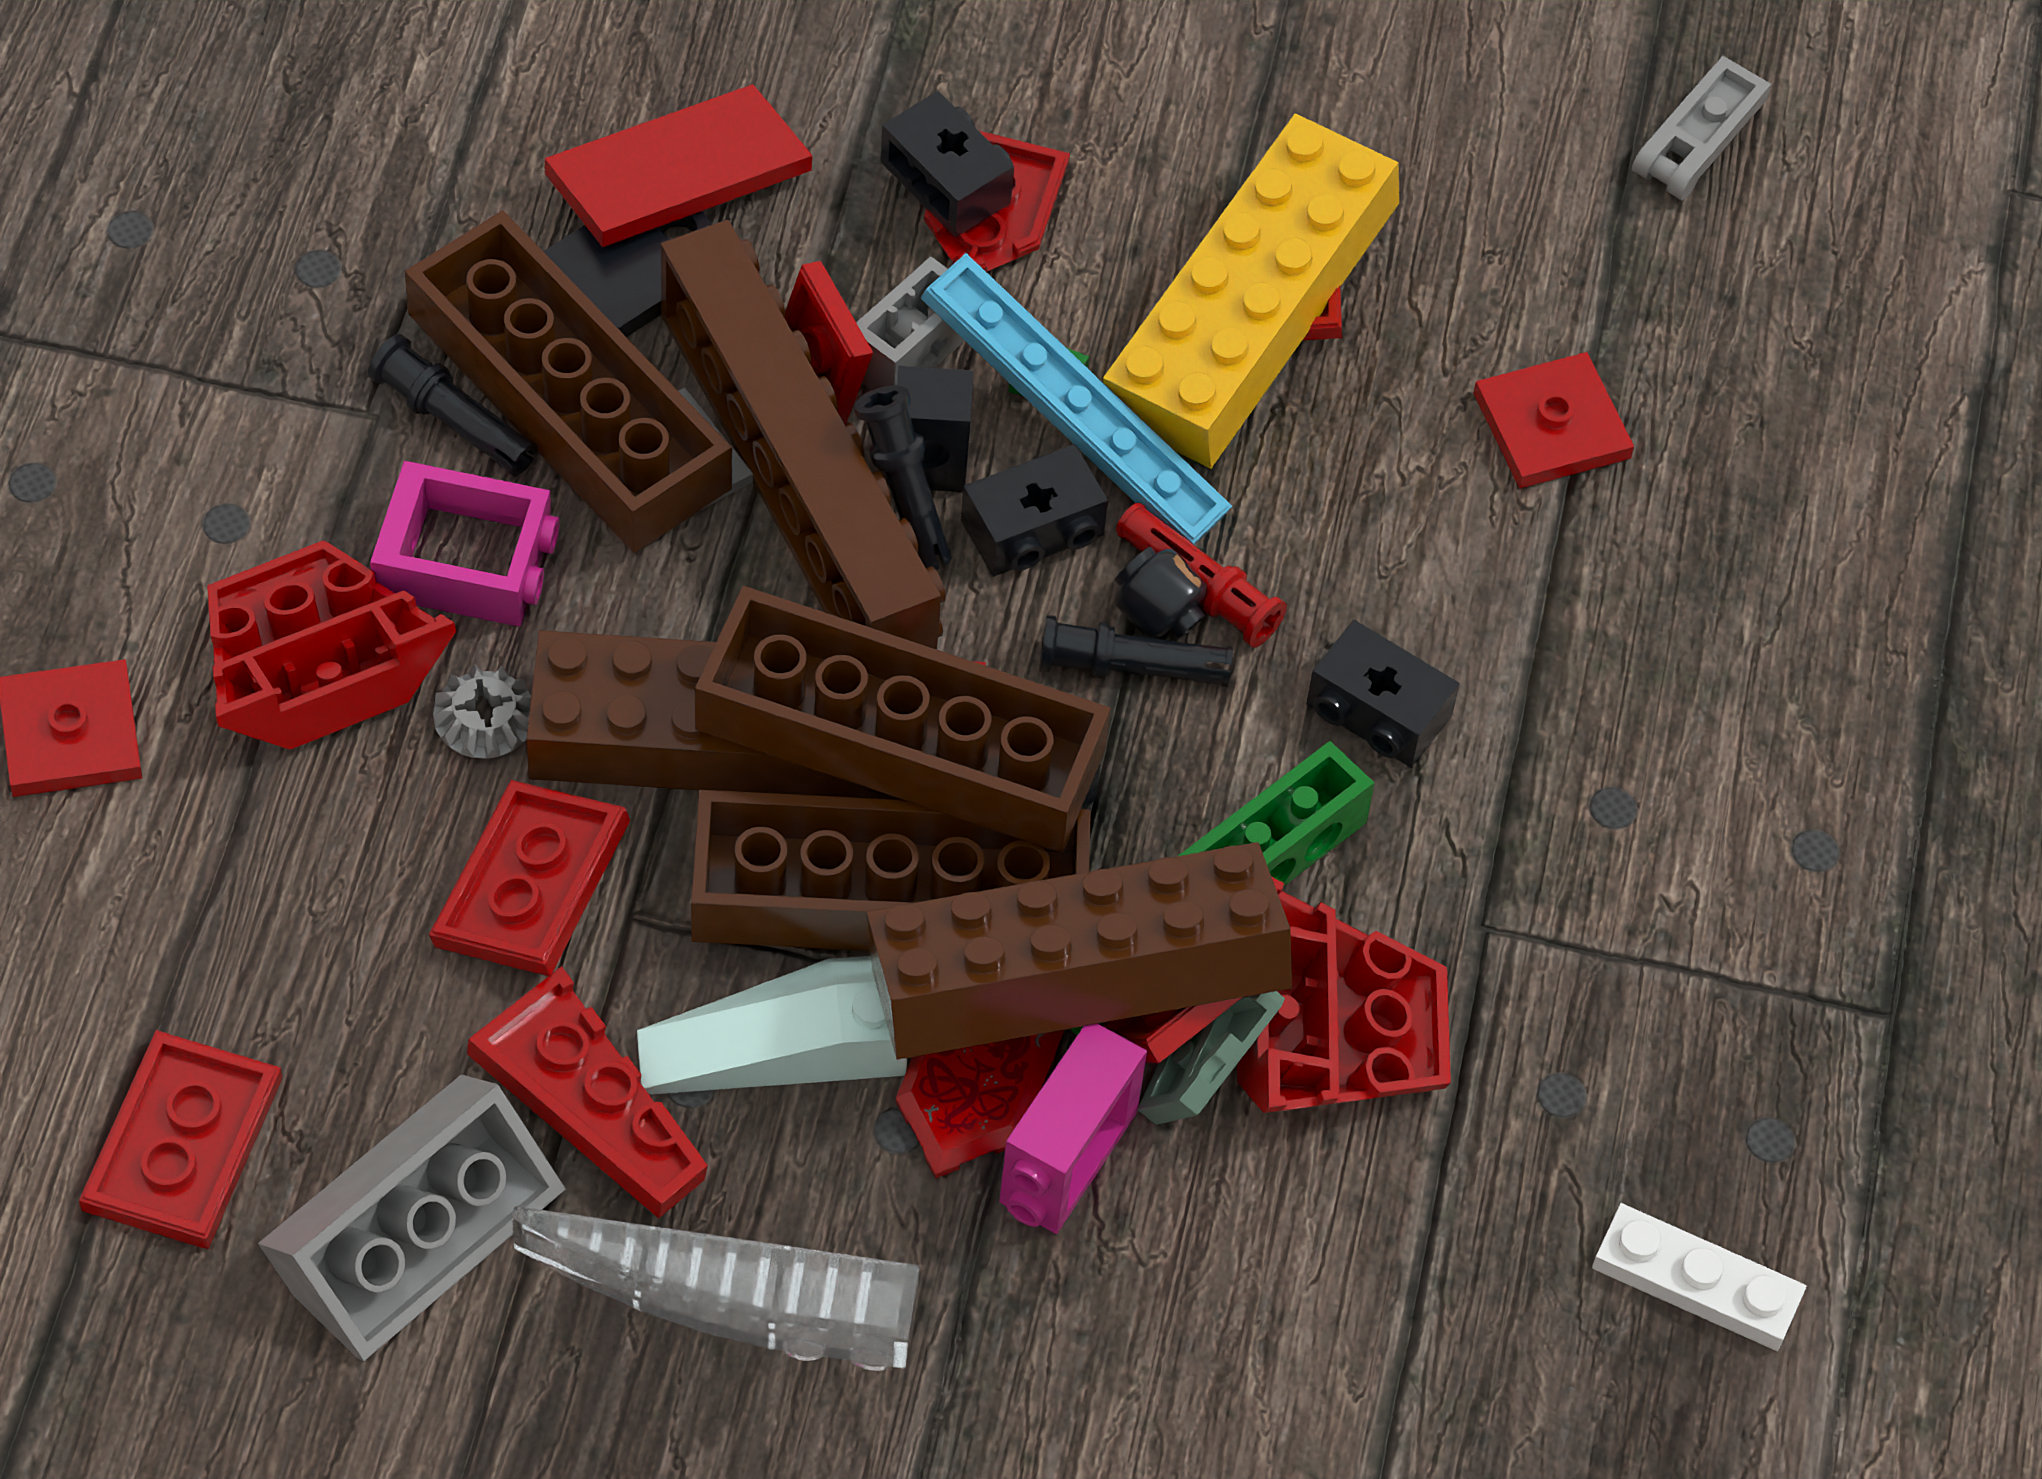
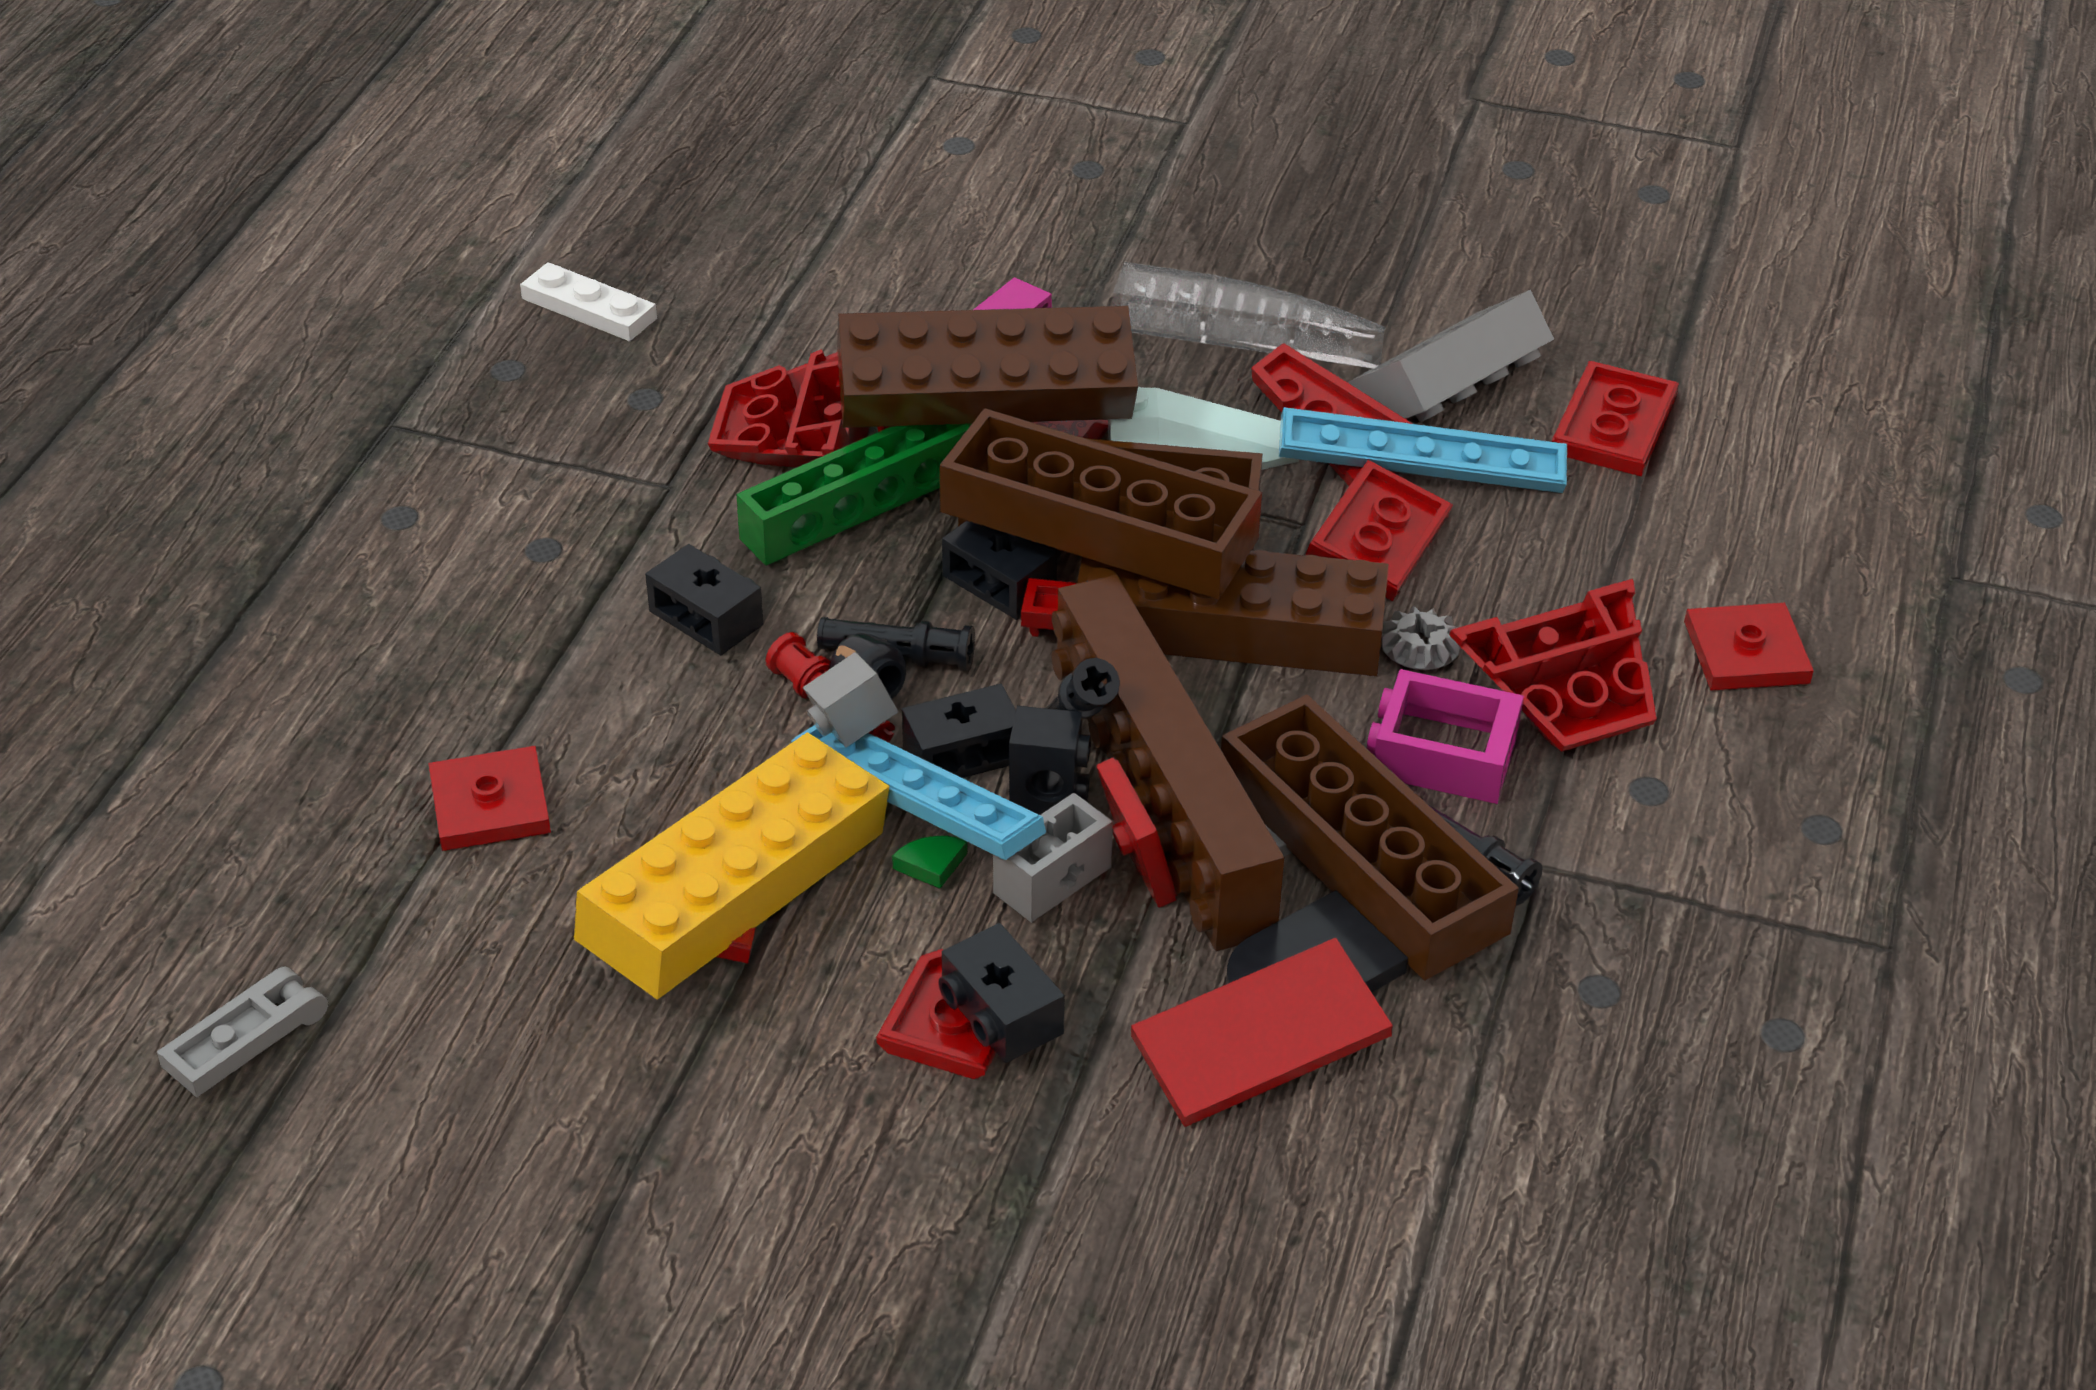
camera: 170 degrees left, 15 degrees down
(466, 1000) = (1423, 450): none -> medium azure tile
(1168, 488) = (849, 700): none -> light grey brick

